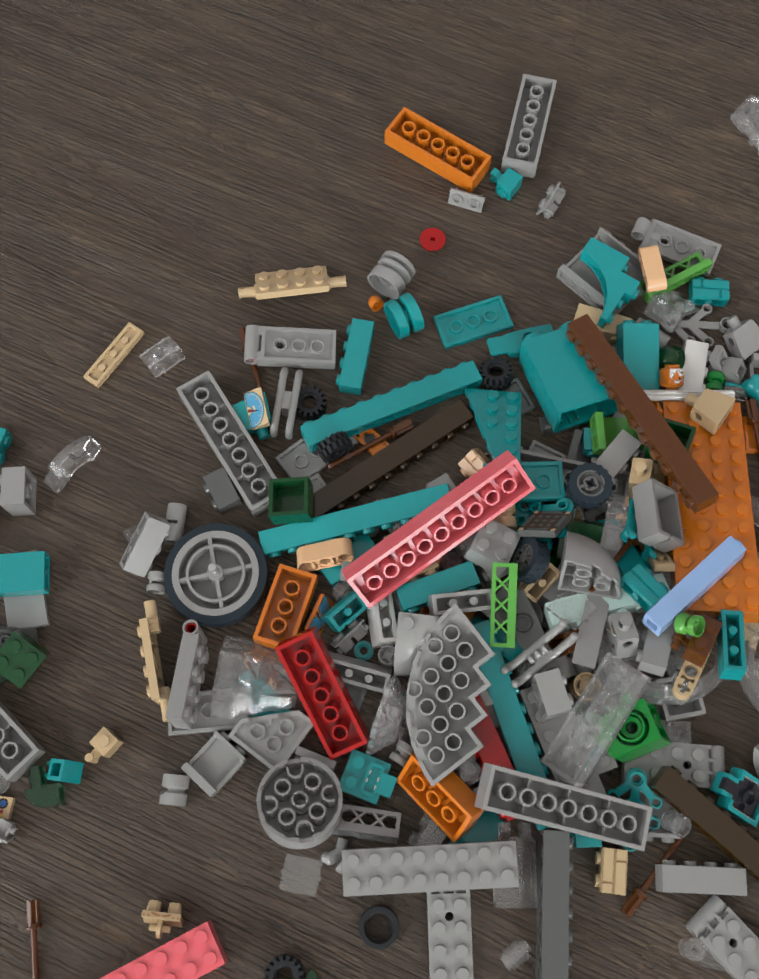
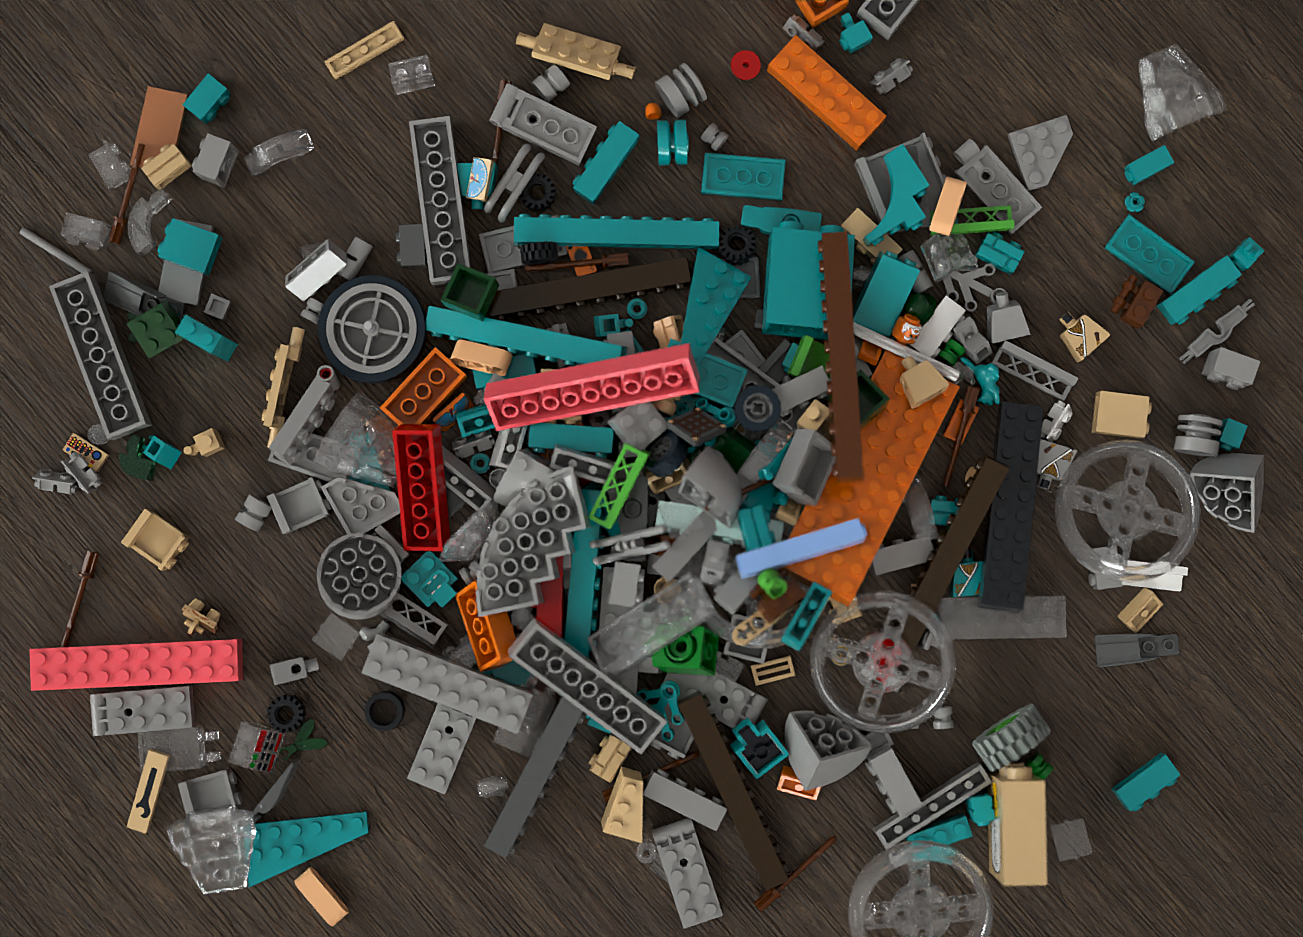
camera: 25 degrees right, 15 degrees up
(67, 644) = (206, 338): none -> teal brick
(68, 617) = (217, 307): none -> light grey tile
(90, 859) = (156, 539): none -> tan panel
(265, 934) = (283, 672): none -> light grey torso
(282, 313) = (550, 83): none -> light grey wheel
(421, 478) = (610, 324): none -> teal brick
(435, 300) = (714, 136): none -> light grey wheel
(437, 455) = (637, 302): none -> teal plate
(507, 232) = (826, 93): none -> orange brick
(651, 912) = (625, 806): none -> tan wedge
(675, 823) = (685, 744): clear wheel -> none
(694, 207) = (1040, 150): none -> light grey plate
(700, 730) = (771, 662): none -> tan tile

